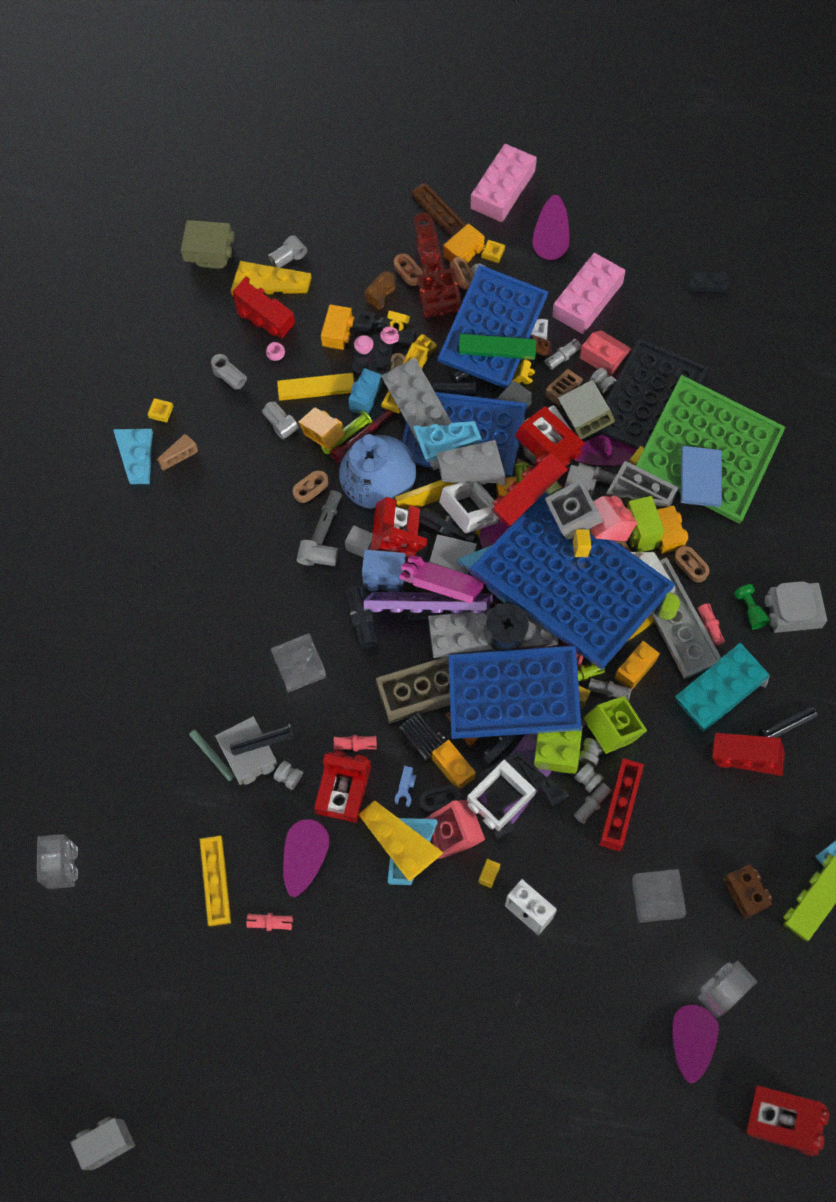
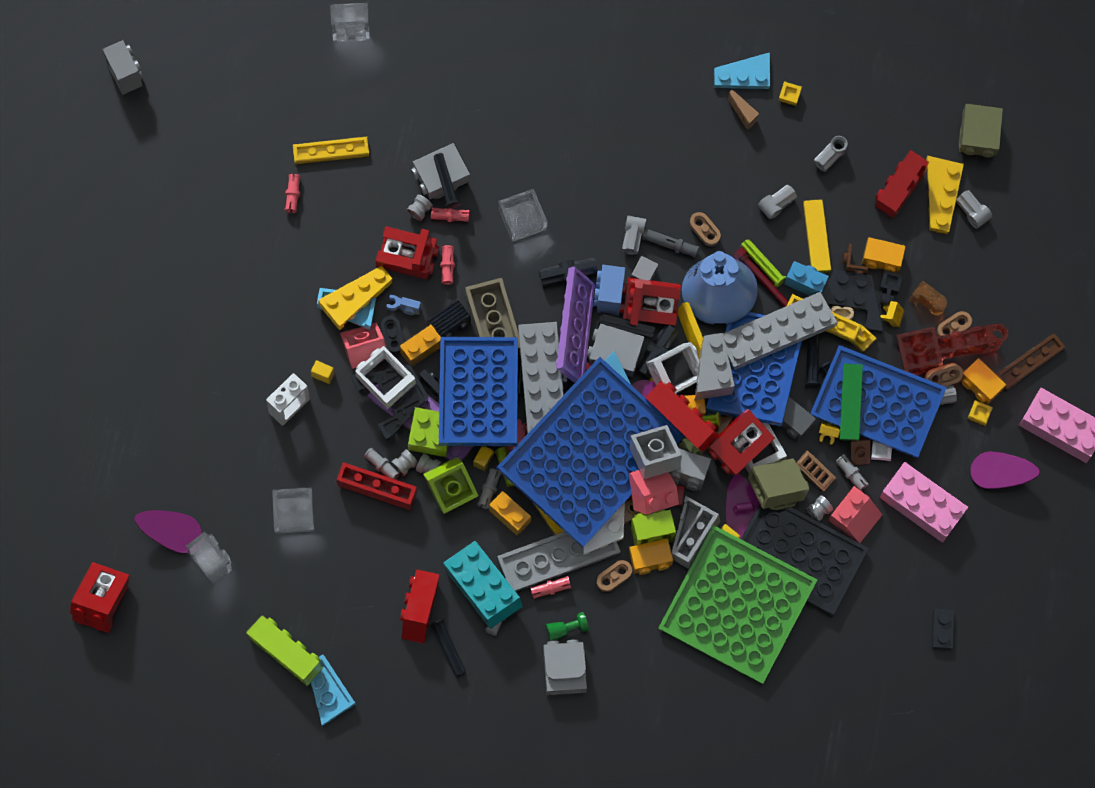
camera: 85 degrees right, 5 degrees up
(212, 755) = (451, 139): sand green bar -> none
(275, 351) = (856, 198): bright pink plate -> none
(294, 752) = (450, 214): none -> coral pin
(303, 854) = (346, 219): magenta shield -> none
(322, 428) = (764, 238): light orange brick -> none
(342, 357) = (851, 268): none -> reddish brown bracket
(363, 344) = (859, 277): bright pink plate -> none
(389, 335) = (870, 303): bright pink plate -> none
(441, 580) = (590, 332): dark pink tile -> none
(446, 437) = (741, 344): medium azure wing -> none
(506, 616) = (538, 373): black brick -> none
(581, 543) = (623, 459): yellow piece -> none
(600, 475) = (714, 492): light grey pin -> none
(669, 607) = (564, 544): lime brick -> none
(701, 476) = (703, 588): medium blue tile -> none
(748, 891) = (294, 590): reddish brown brick -> none

